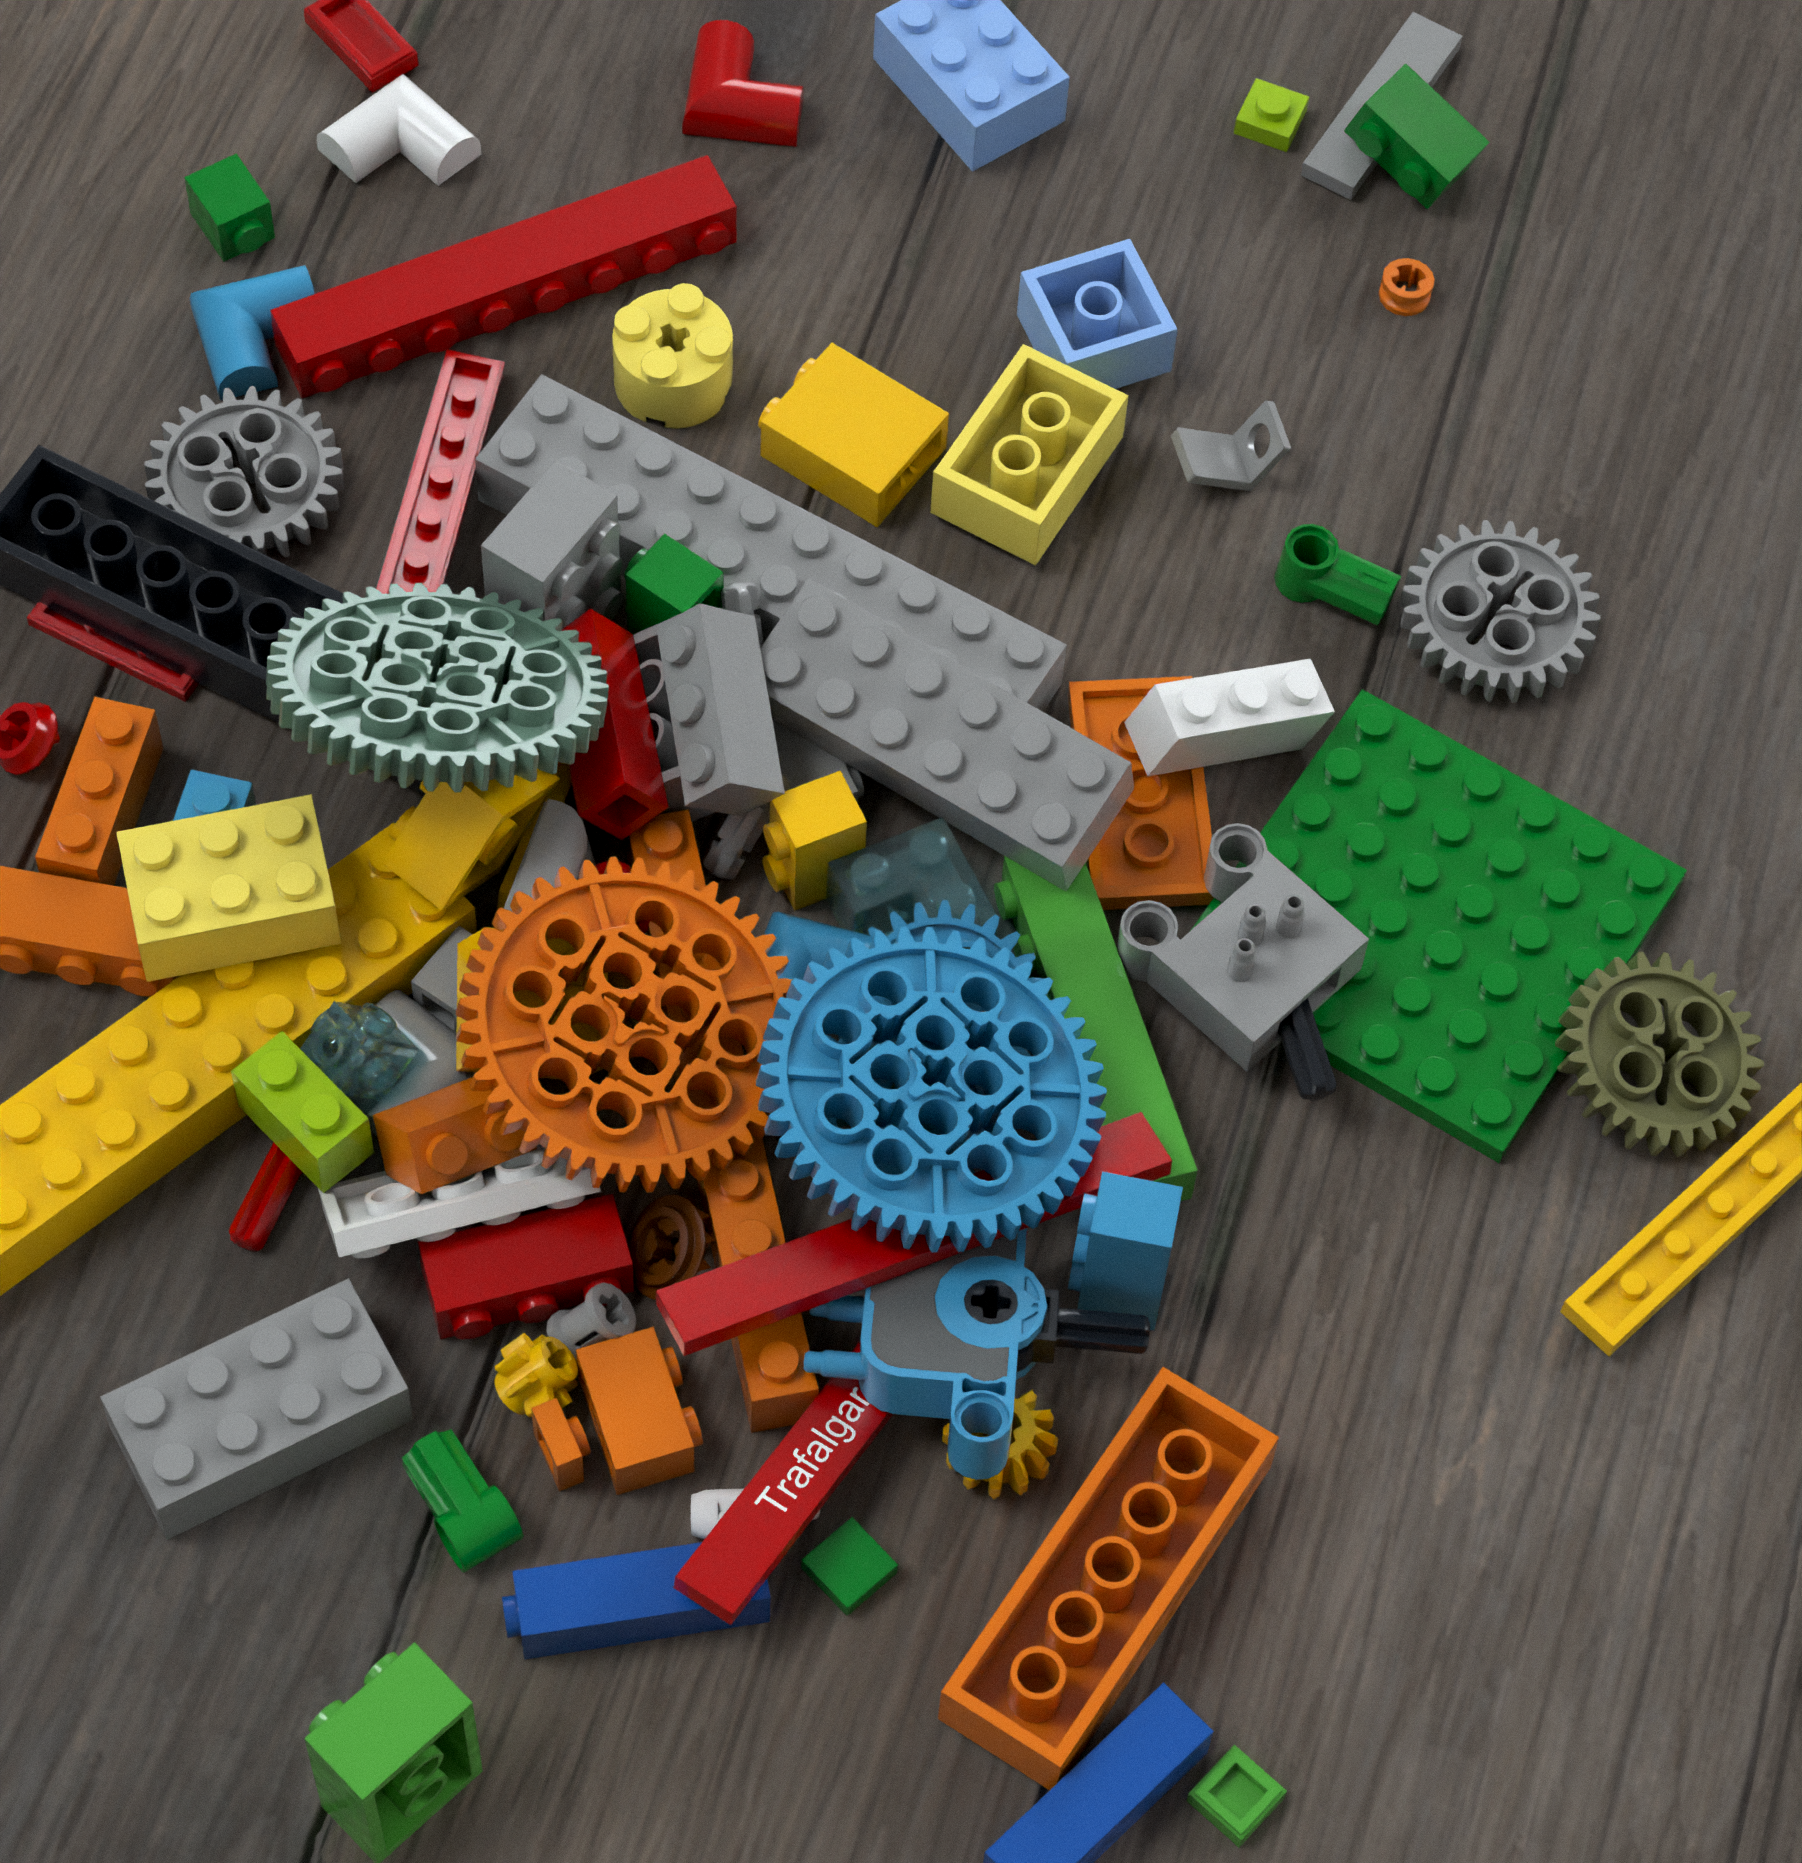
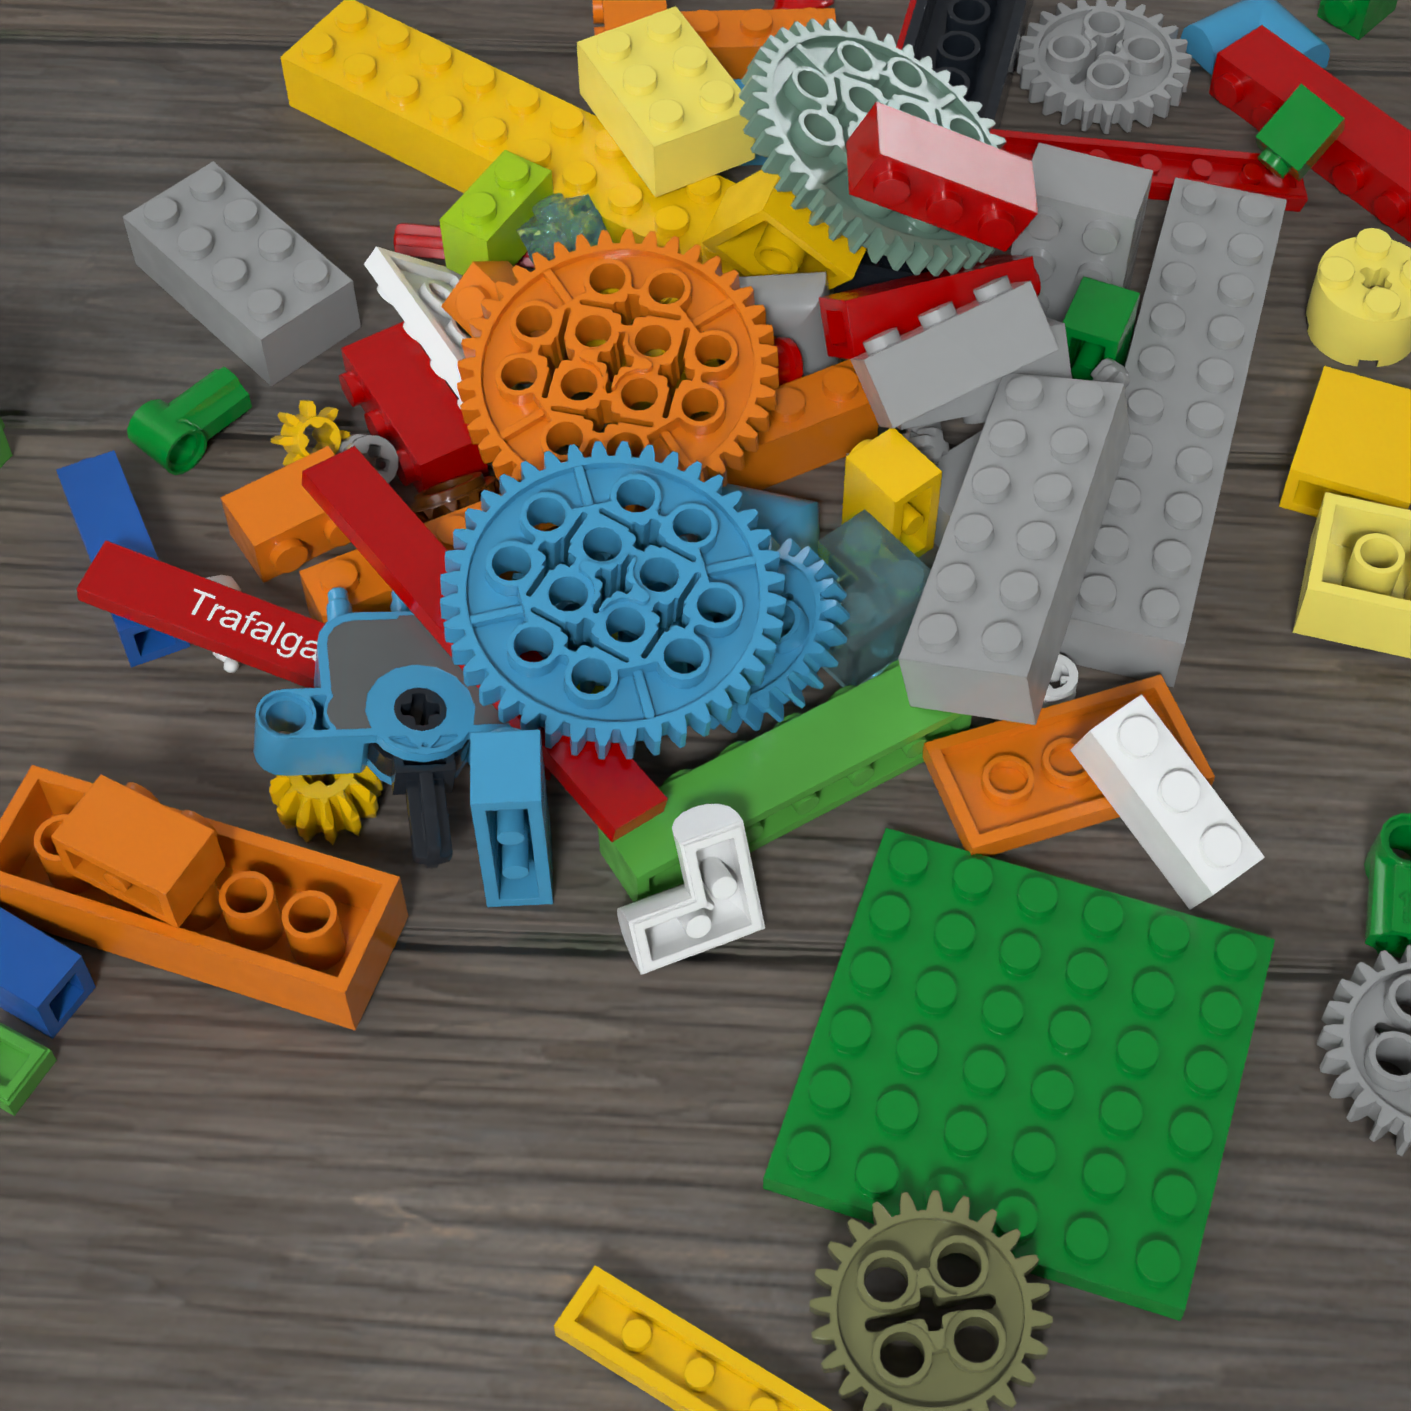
camera: 80 degrees right, 5 degrees down
(459, 332) = (1298, 134): none -> green brick
(539, 638) = (941, 177): none -> red brick
(561, 1443) = (250, 461): orange plate -> none
(849, 1566) = (186, 707): green tile -> none
(1096, 1581) = (140, 849): none -> orange brick
(1222, 1130) = (711, 906): none -> white brick
(1253, 962) = (886, 878): light grey piece -> none

